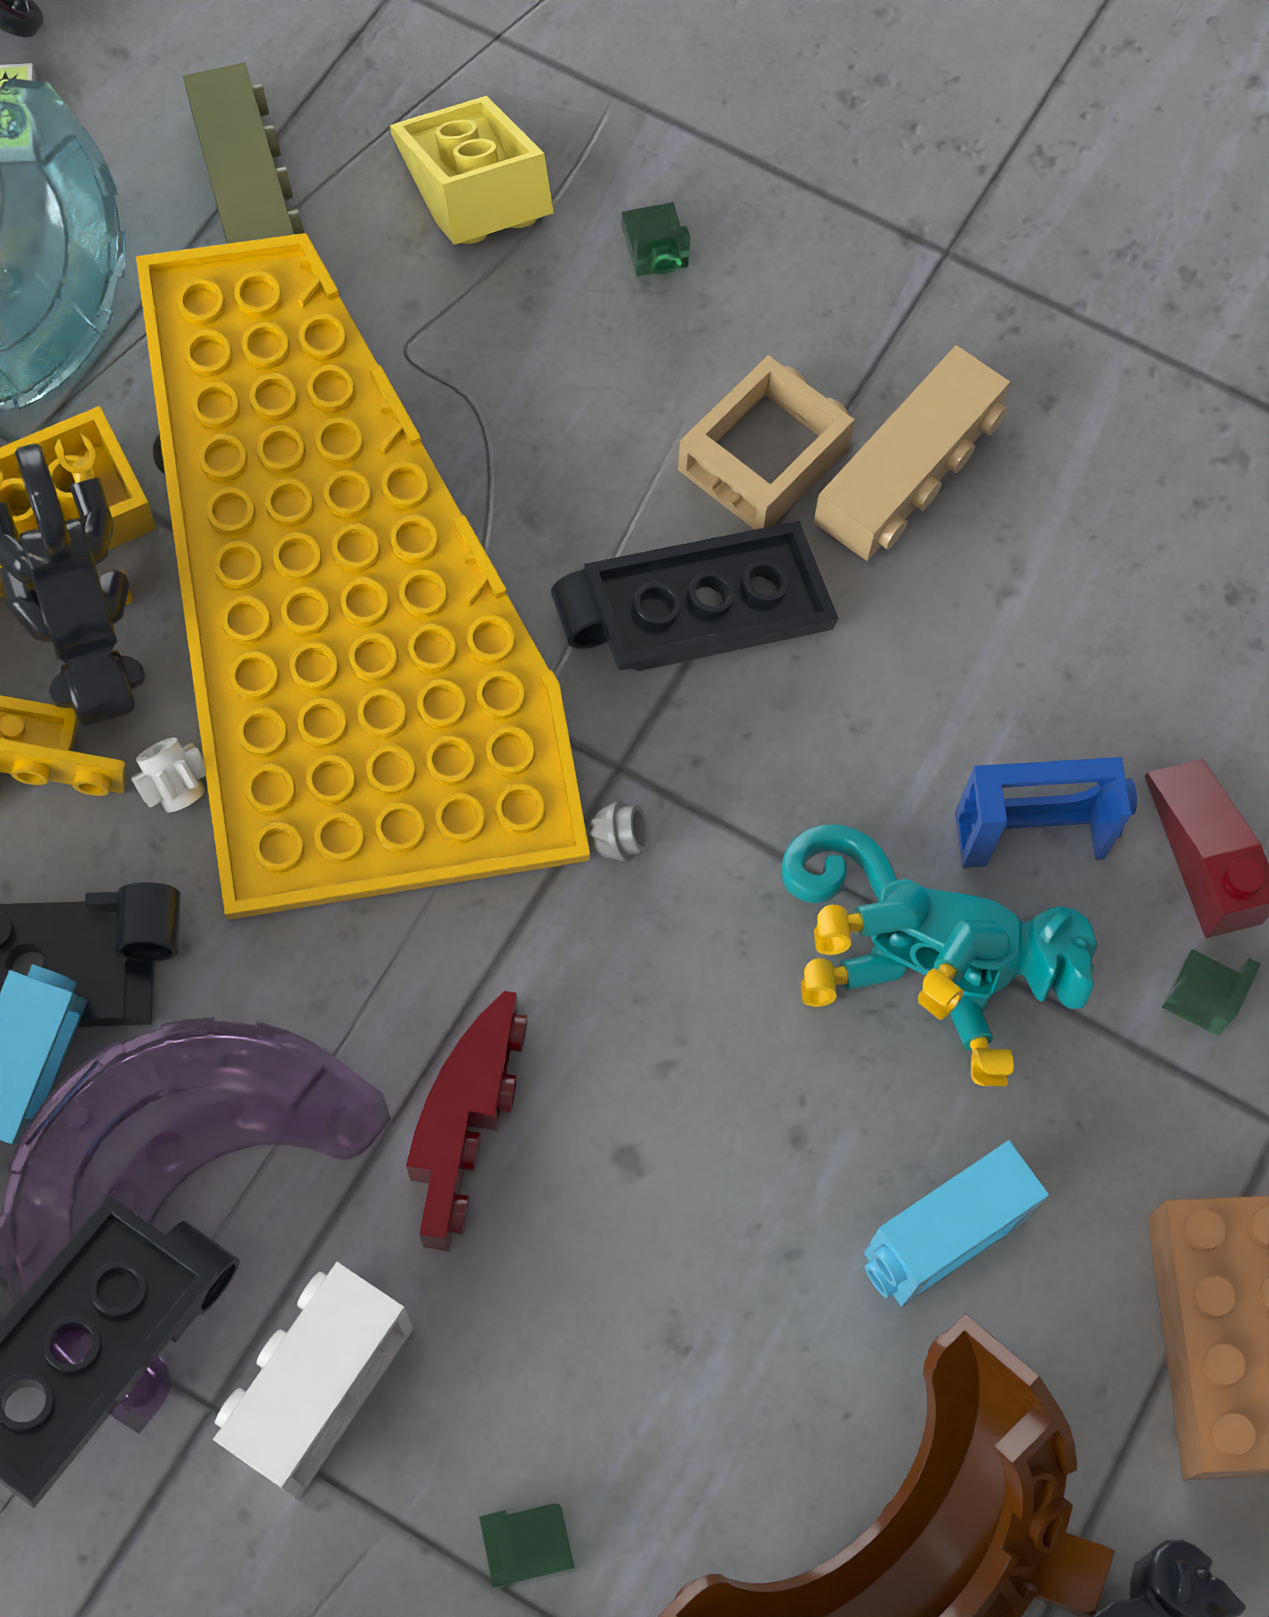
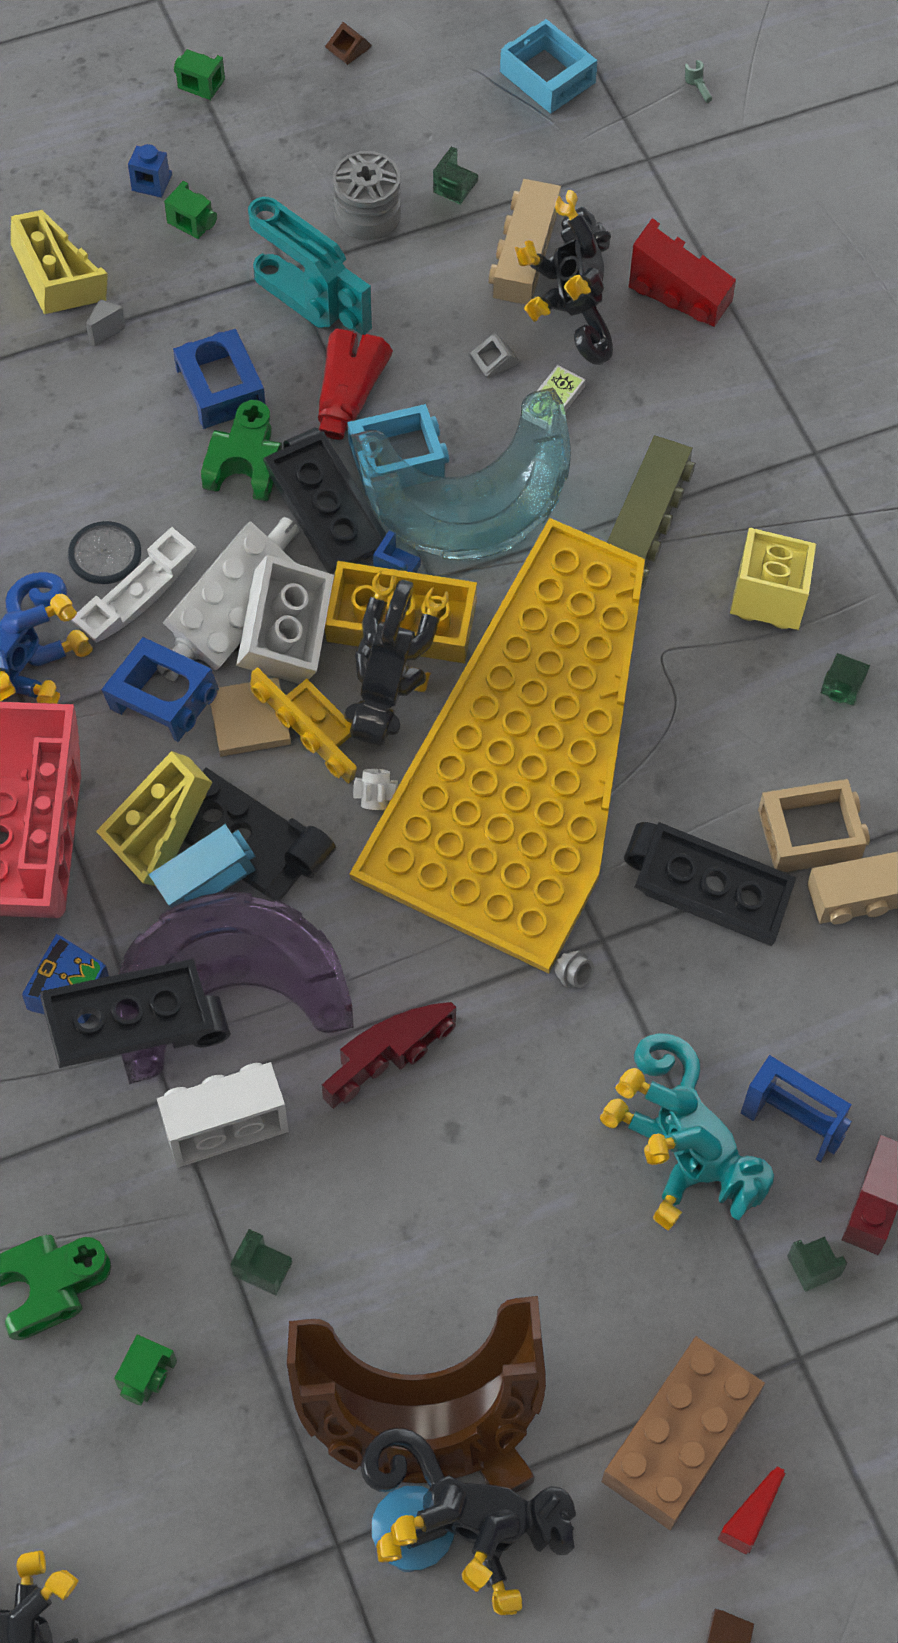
camera: 40 degrees right, 5 degrees down
(953, 1224) = (578, 1269): medium azure window -> none

